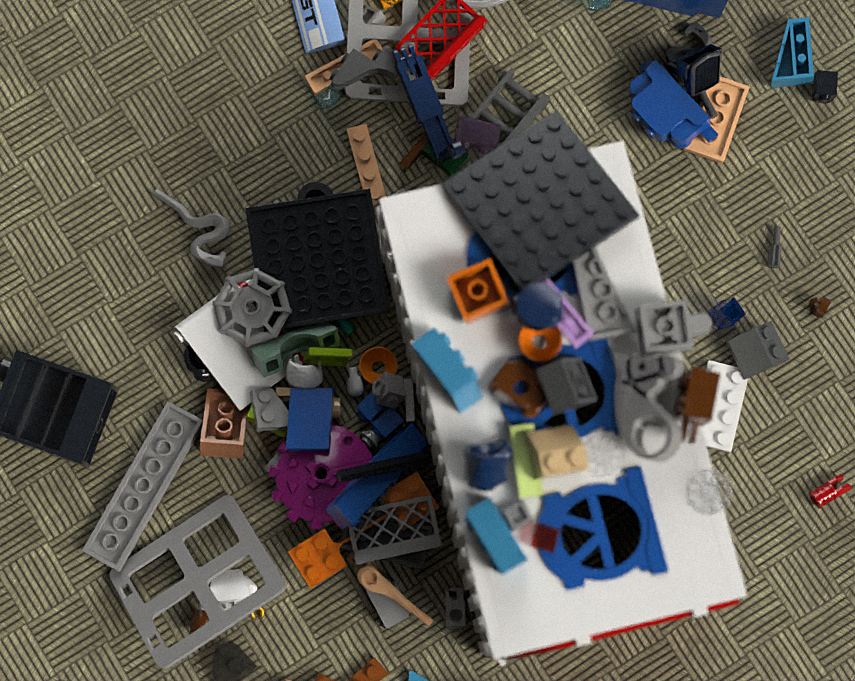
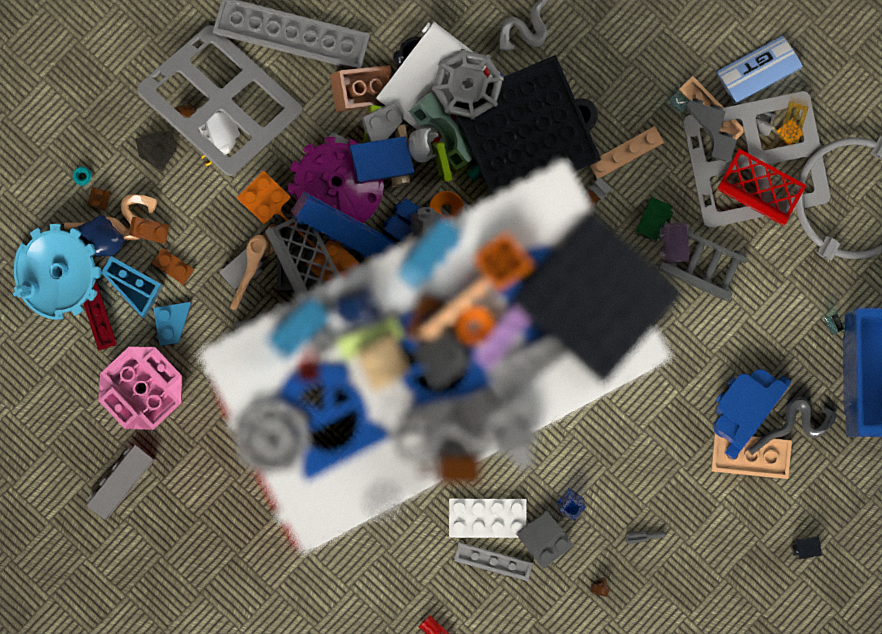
camera: 75 degrees right, 5 degrees up
(354, 383) = (427, 191): white cylinder -> none
(370, 439) = (380, 217): light grey plate -> none
(384, 466) = (351, 226): black axle -> none
(413, 154) = (647, 192): reddish brown tile -> none
(426, 105) = (691, 189): dark blue hinge -> none
(519, 364) = (448, 314): none -> light nougat plate
(537, 307) = (499, 315): dark blue piece -> none
(624, 600) = (274, 449): none -> light grey plate
(698, 68) = (788, 426): black piece -> none
(766, 412) = (493, 561): none -> light grey tile
(795, 56) = (825, 514): dark azure wedge -> none

